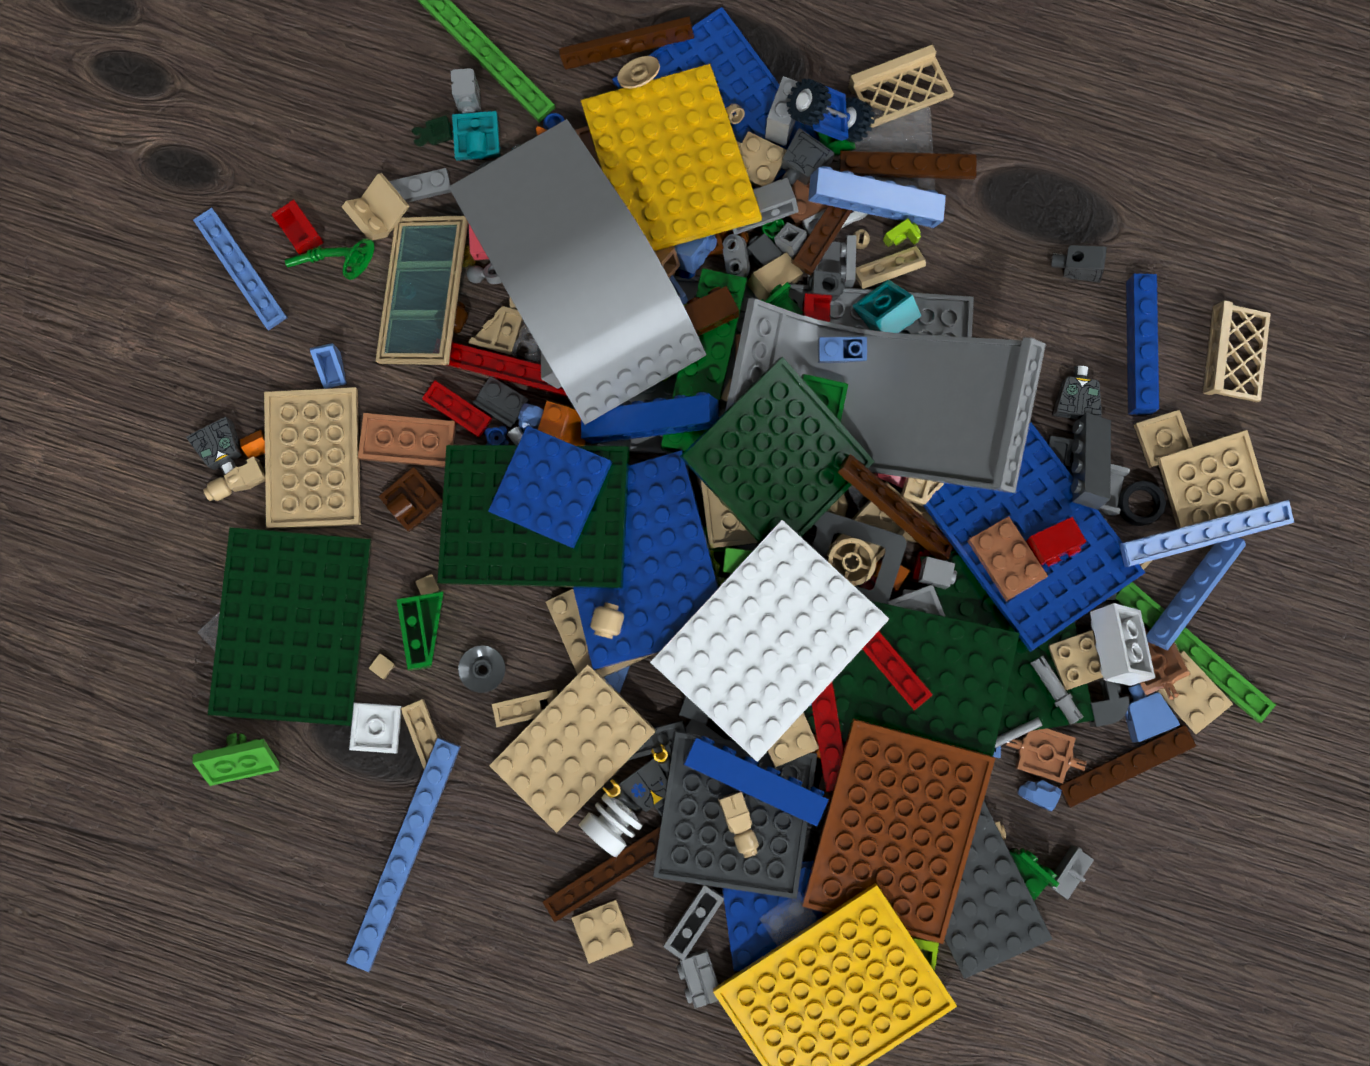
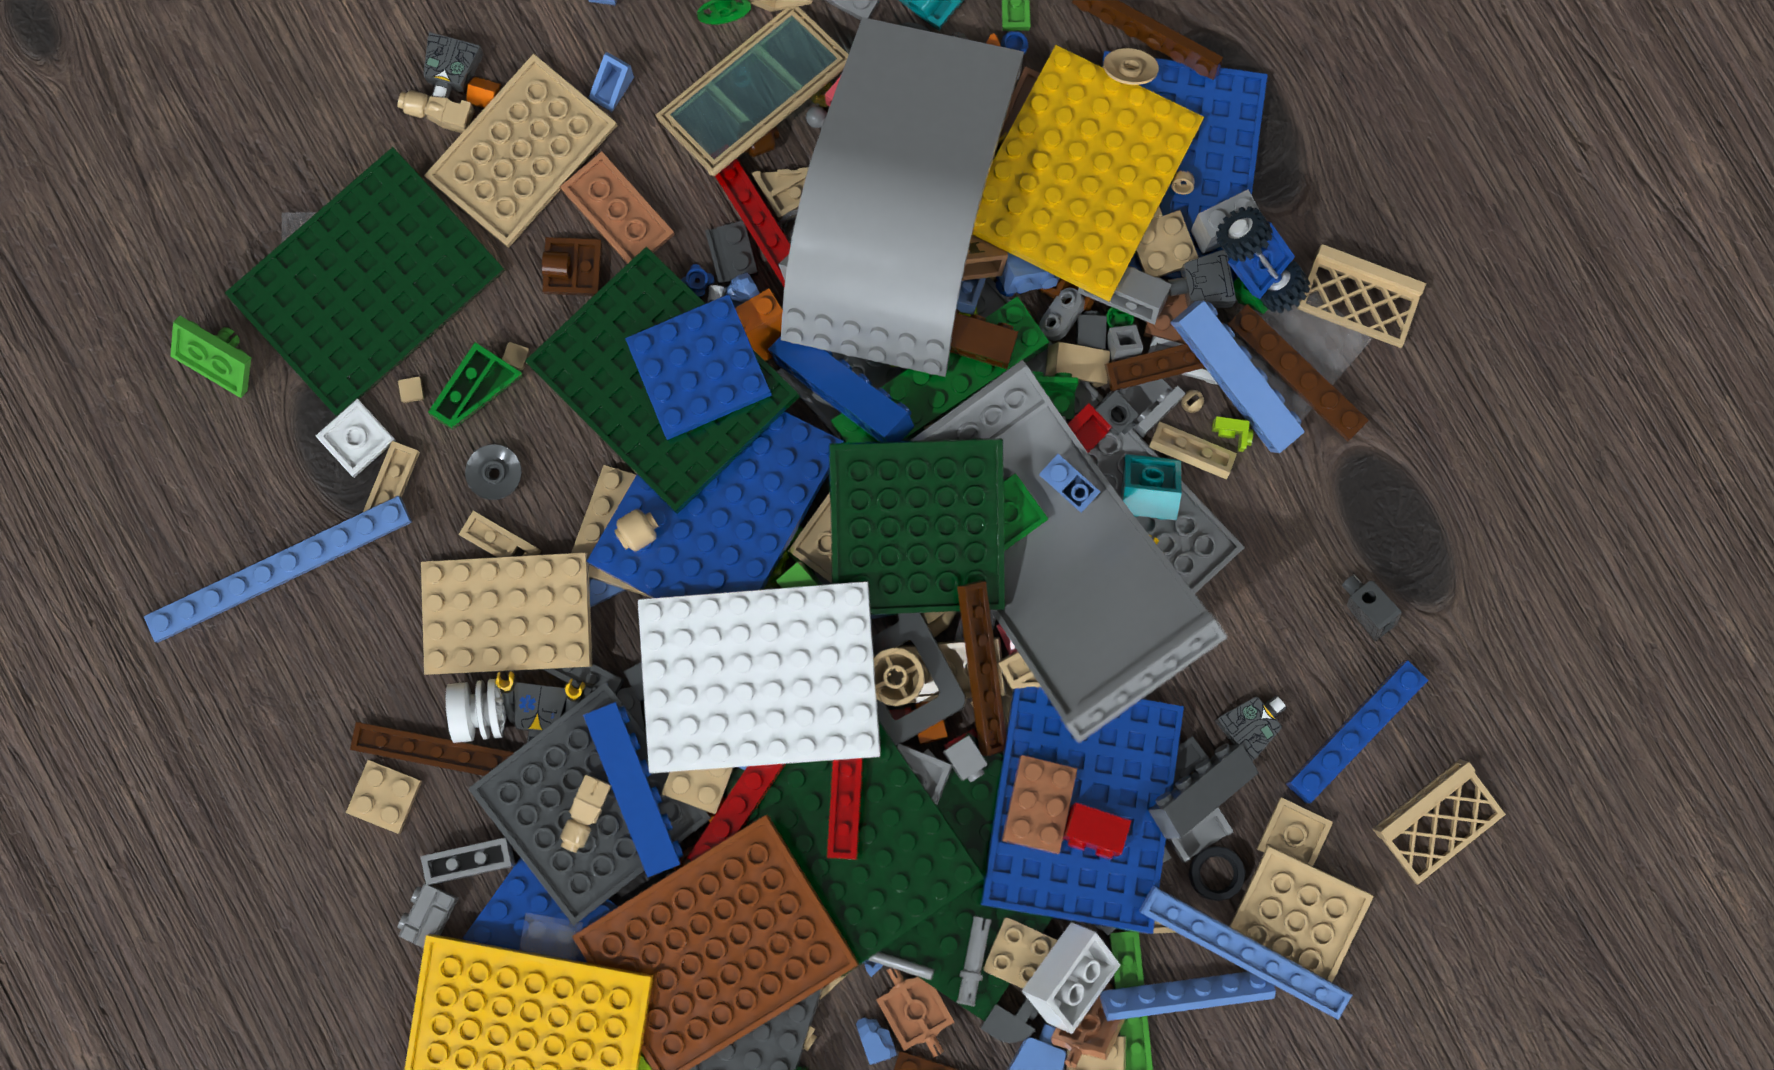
camera: 40 degrees right, 0 degrees up
(457, 409) = (686, 223): red plate -> none

